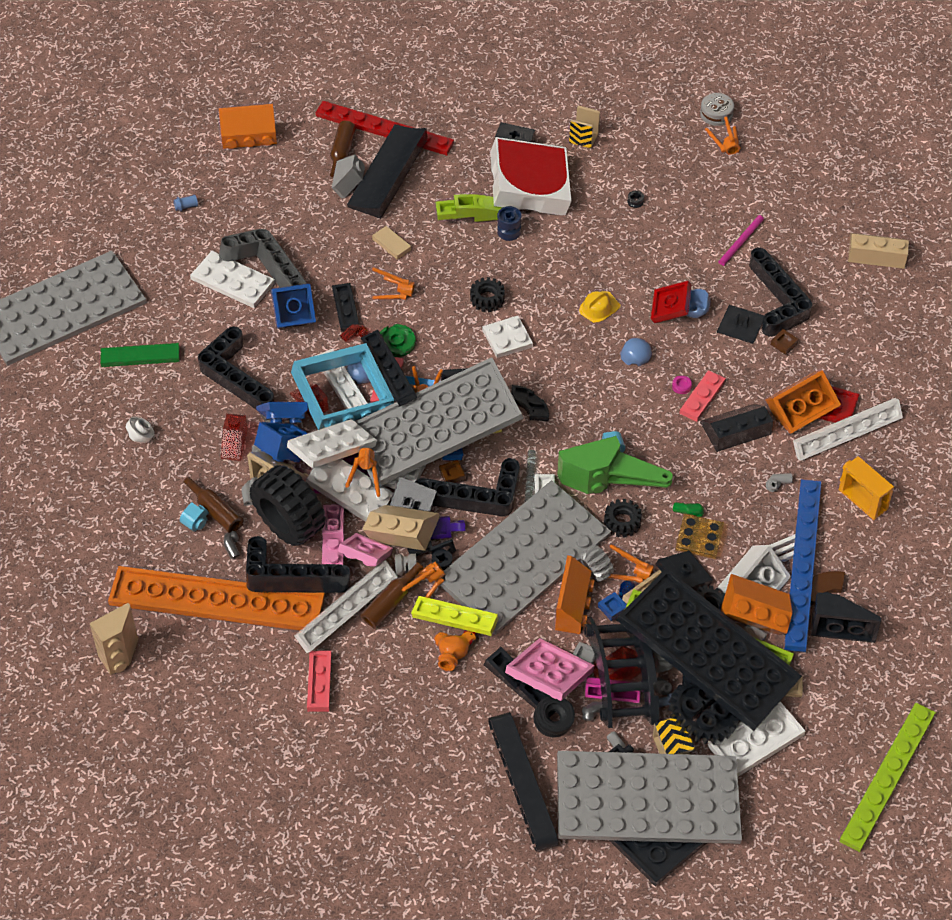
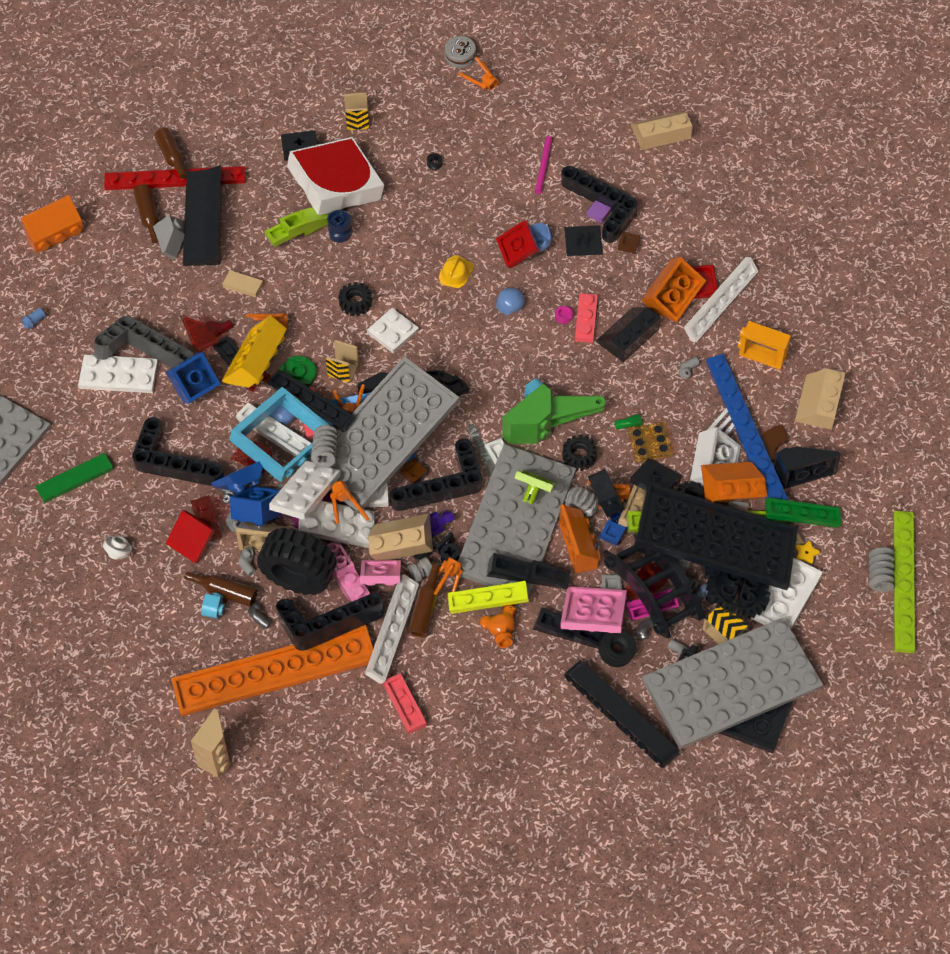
camera: 25 degrees left, 5 degrees up
(209, 446) = (190, 536): none -> red tile
(323, 269) = (199, 333): none -> clear red slope
(345, 273) = (221, 328): none -> dark red arm
(363, 307) = (255, 353): none -> yellow slope
(372, 410) = (324, 446): none -> light grey piece
(392, 101) = (170, 150): none -> reddish brown piece
(413, 495) = (395, 507): piece -> none
(447, 342) = (345, 363): none -> tan piece
(509, 610) = (533, 573): none -> black slope
(556, 526) = (534, 483): none -> lime tile
(623, 563) = (606, 493): none -> black slope
(770, 301) = (598, 211): none -> medium lavender tile
(800, 711) = (811, 552): none -> yellow plate
(815, 664) = (803, 512): none -> green plate
(868, 753) = (881, 569): none -> light grey piece
(899, 563) = (820, 398): none -> tan slope

